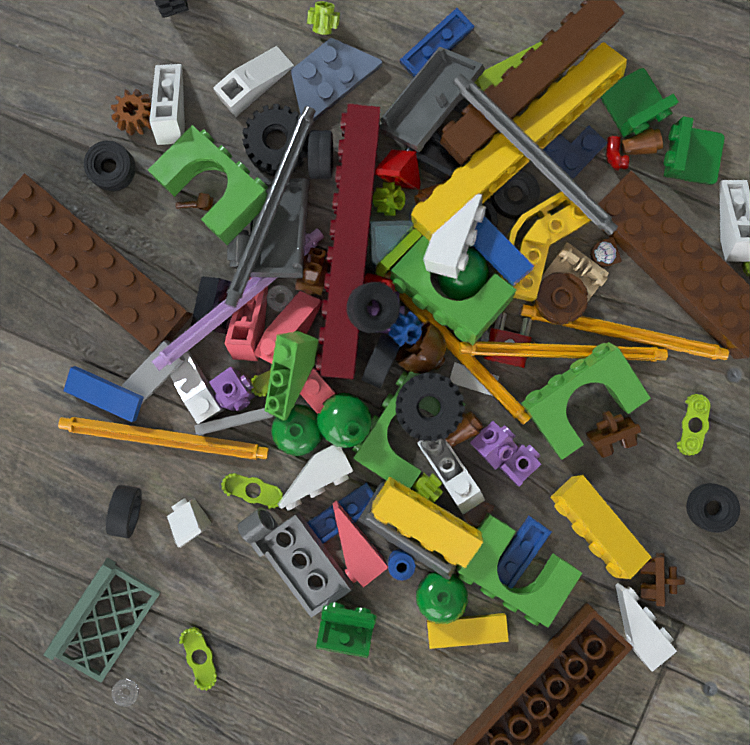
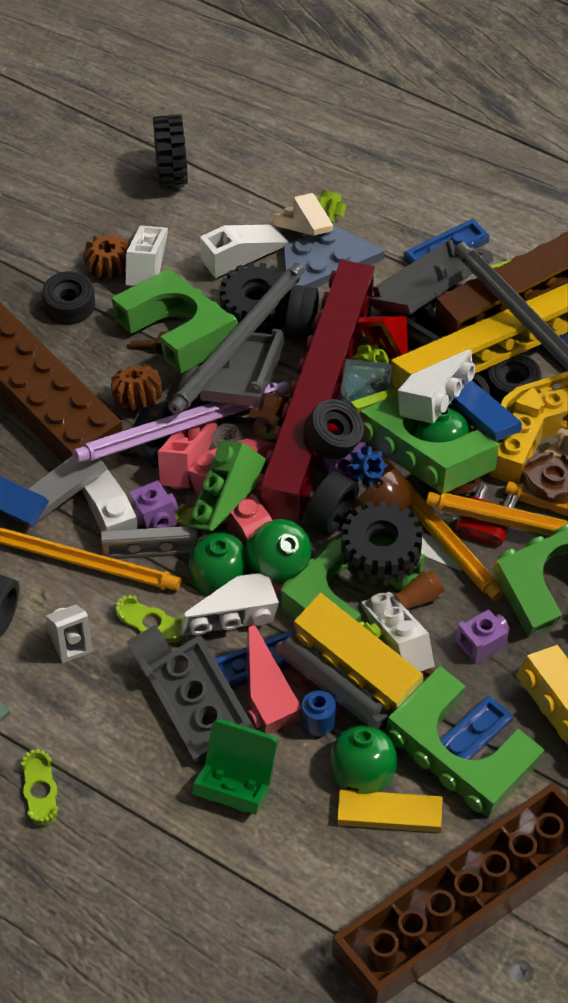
camera: 10 degrees right, 35 degrees down
(191, 261) = (136, 387): none -> dark orange gear
(304, 41) = (304, 216): none -> tan slope
(495, 444) = (453, 605): medium lavender brick -> none

